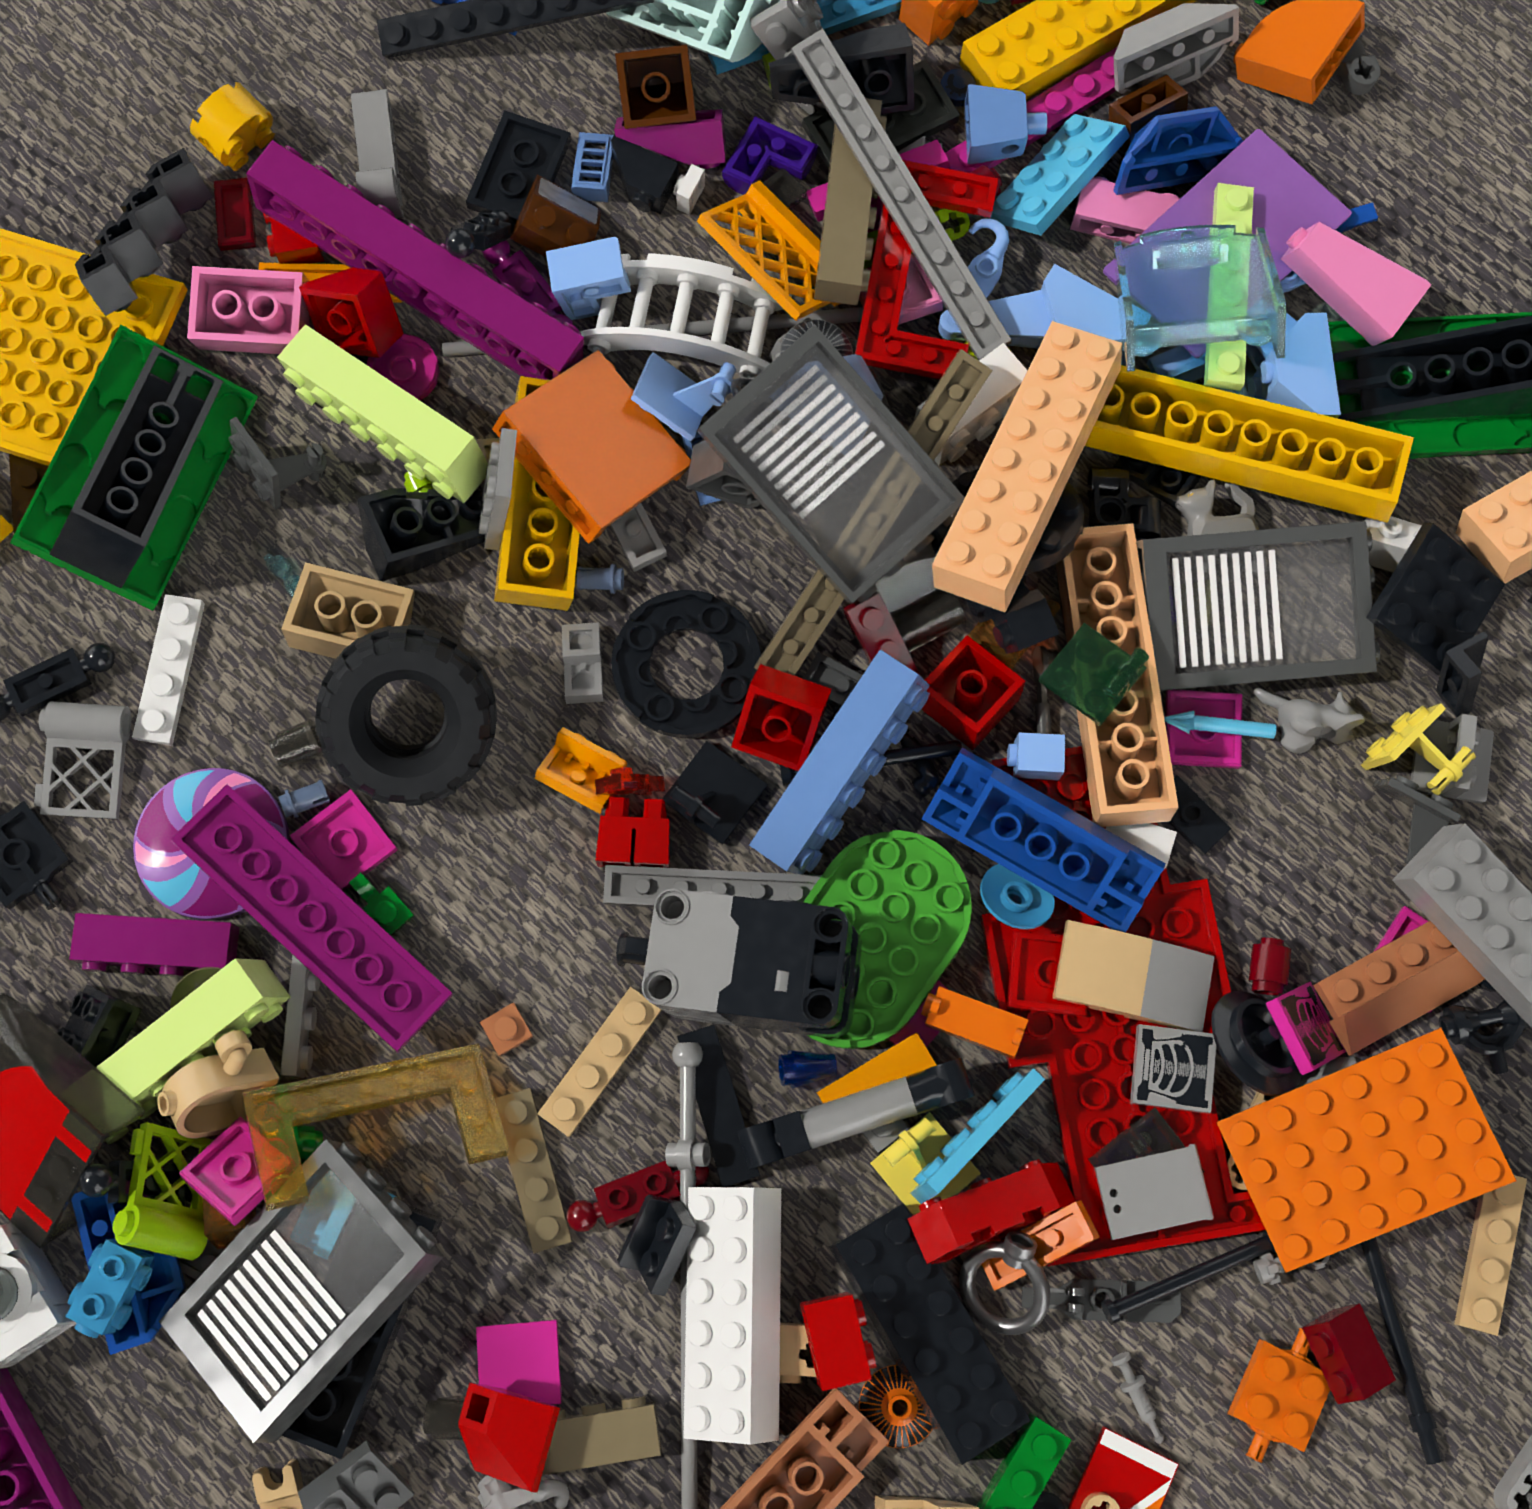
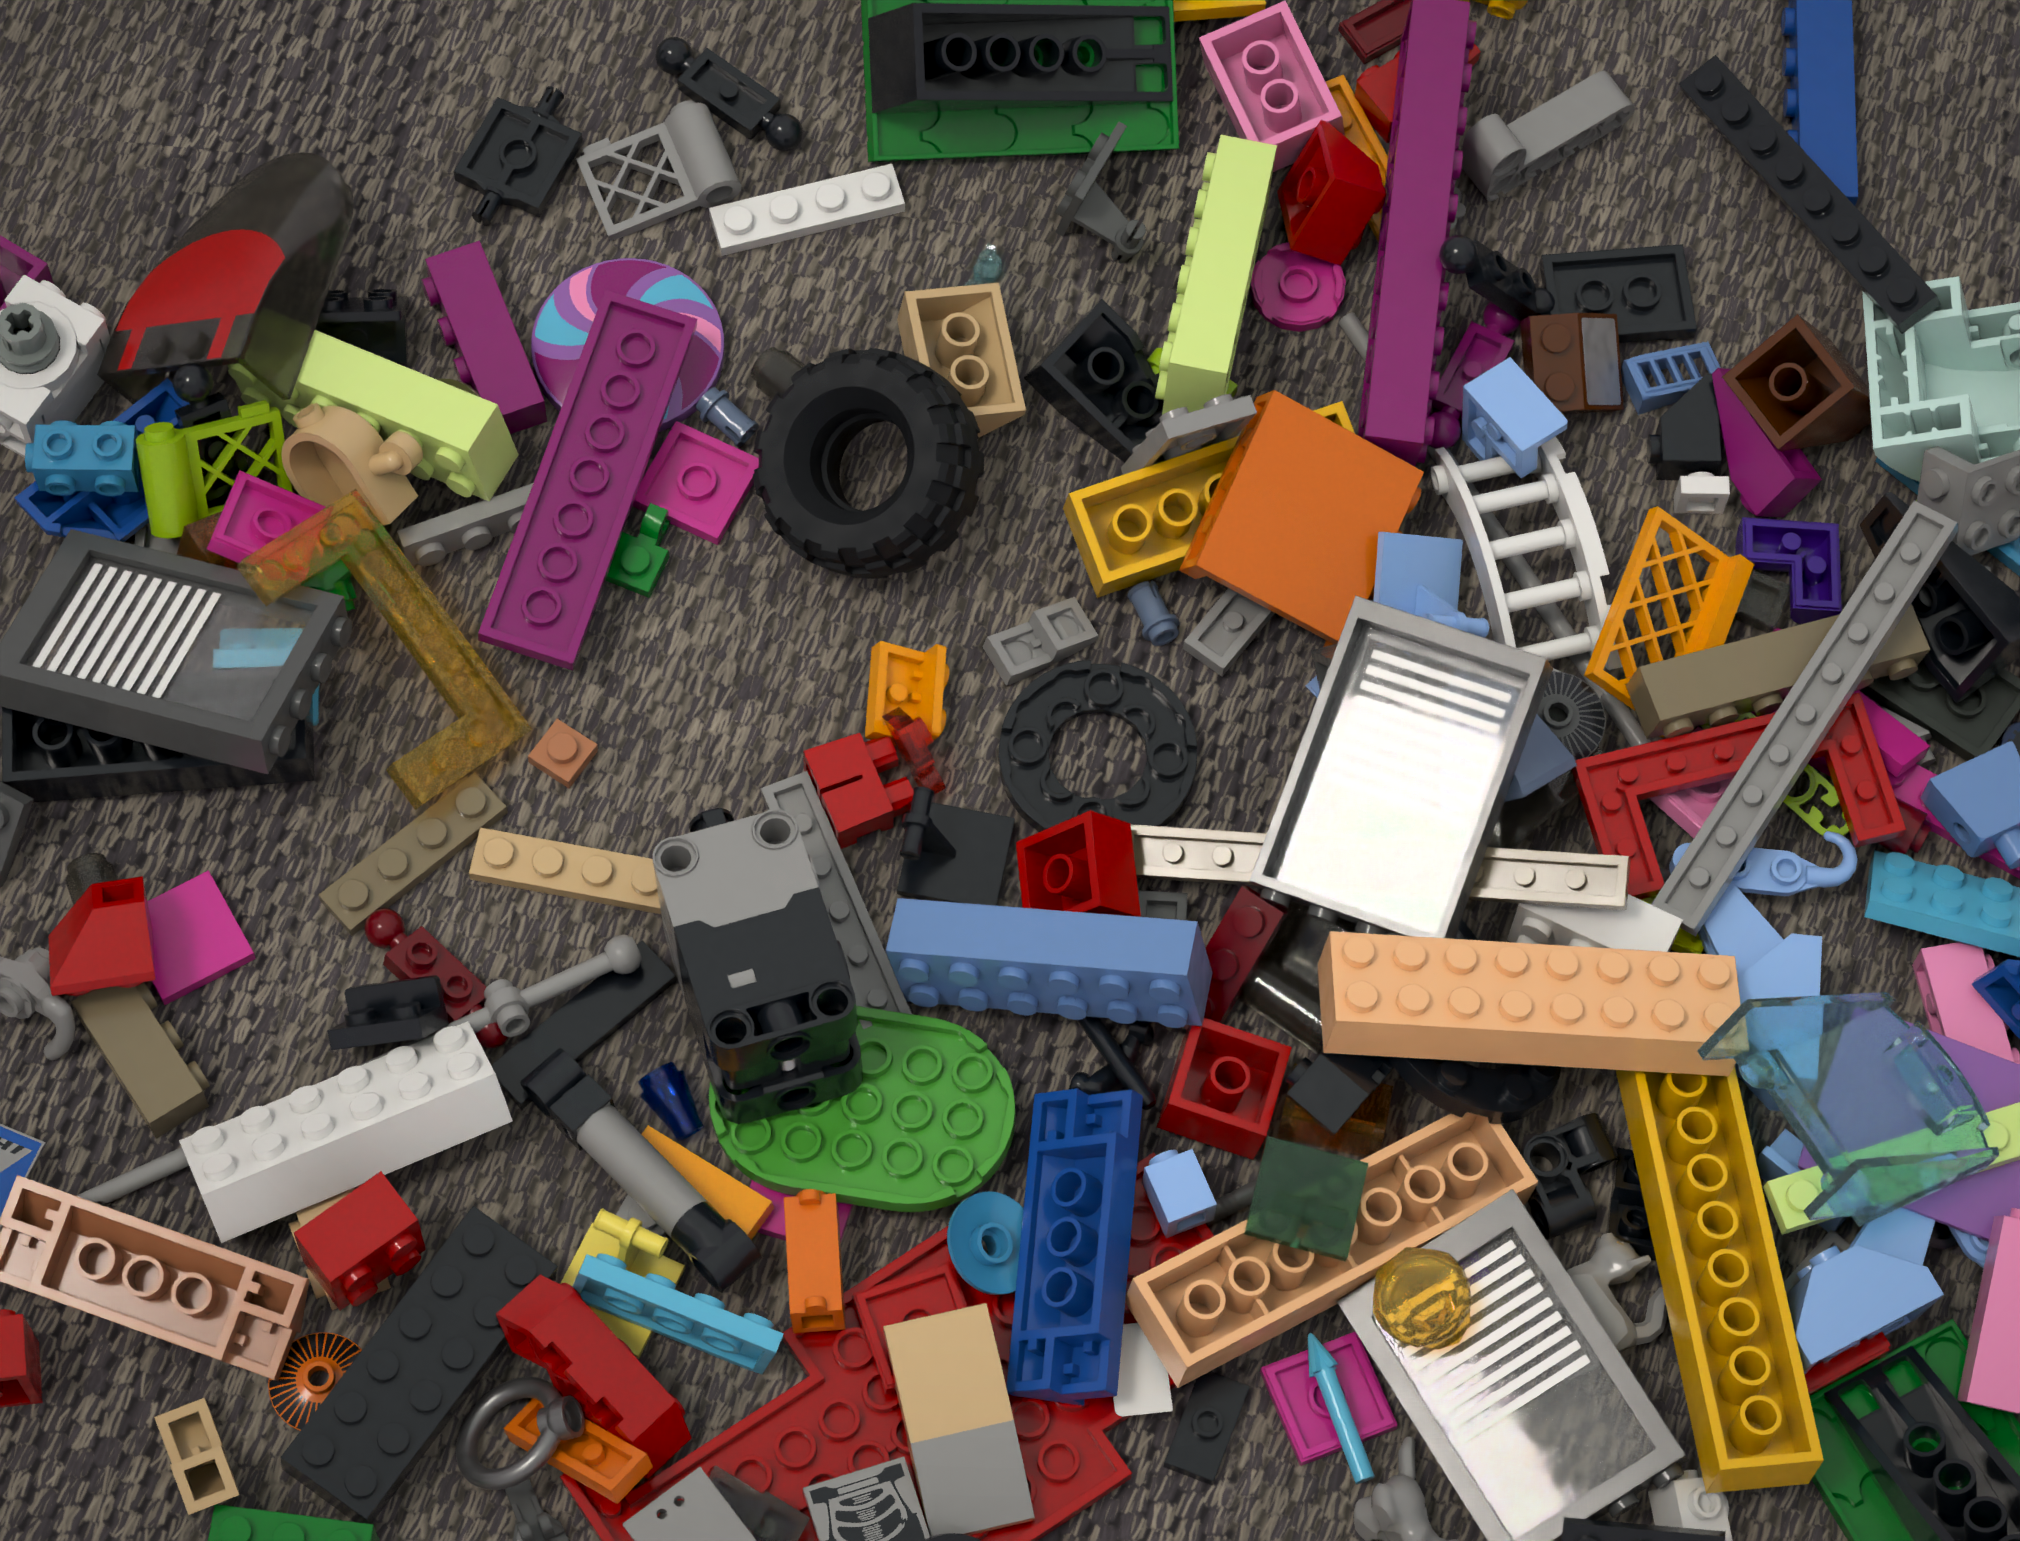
camera: 65 degrees right, 10 degrees down
(1191, 633) = (1423, 1298): none -> clear yellow hat

